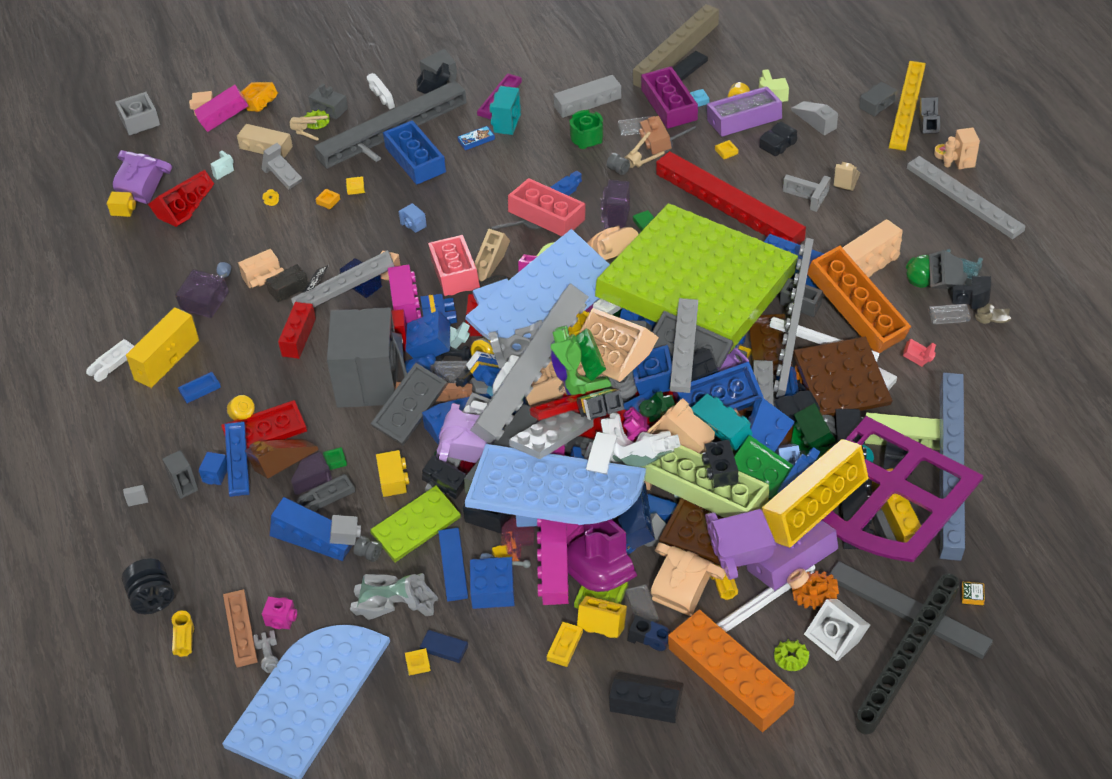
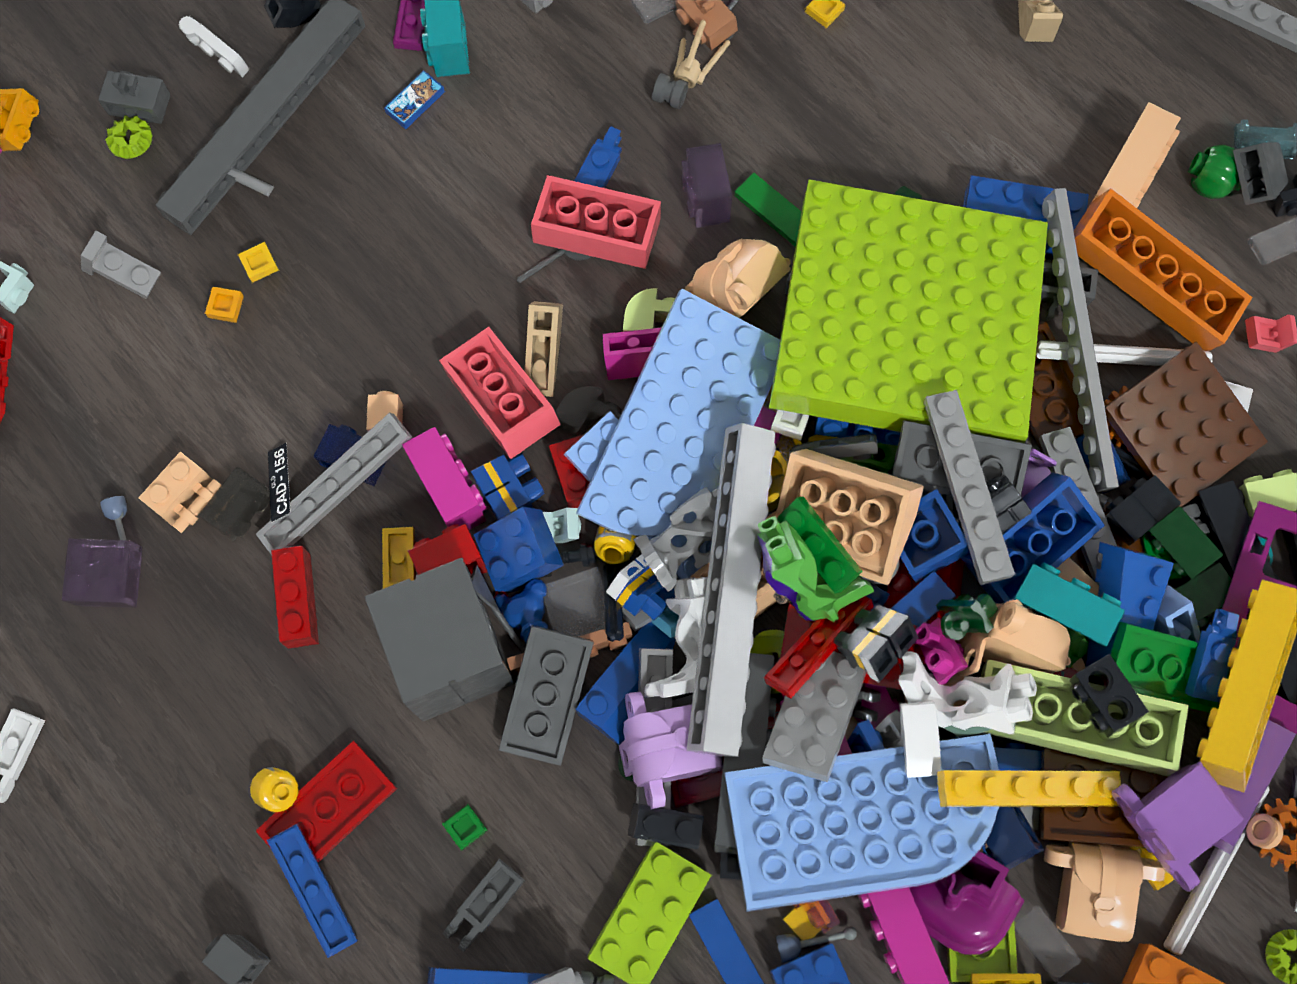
camera: 20 degrees left, 25 degrees up
(162, 347) = (88, 712): yellow brick -> none
(199, 387) = (181, 759): blue tile -> none
(213, 468) = (281, 921): blue brick -> none
(259, 139) = (61, 213): tan brick -> none
(270, 201) = (126, 330): yellow plate -> none
(276, 455) = (381, 861): reddish brown slope -> none
(300, 124) = (108, 160): tan plant -> none
(310, 473) = (442, 874): clear purple slope -> none
(391, 473) = (570, 831): yellow brick -> none
(412, 218) = (385, 304): medium blue brick -> none
(414, 152) = (329, 166): blue brick -> none
(586, 129) = (592, 34): green brick -> none
(653, 497) = (1027, 788): none -> yellow plate
(728, 199) = (873, 115): red brick -> none
(807, 189) = (986, 58): light grey bracket -> none

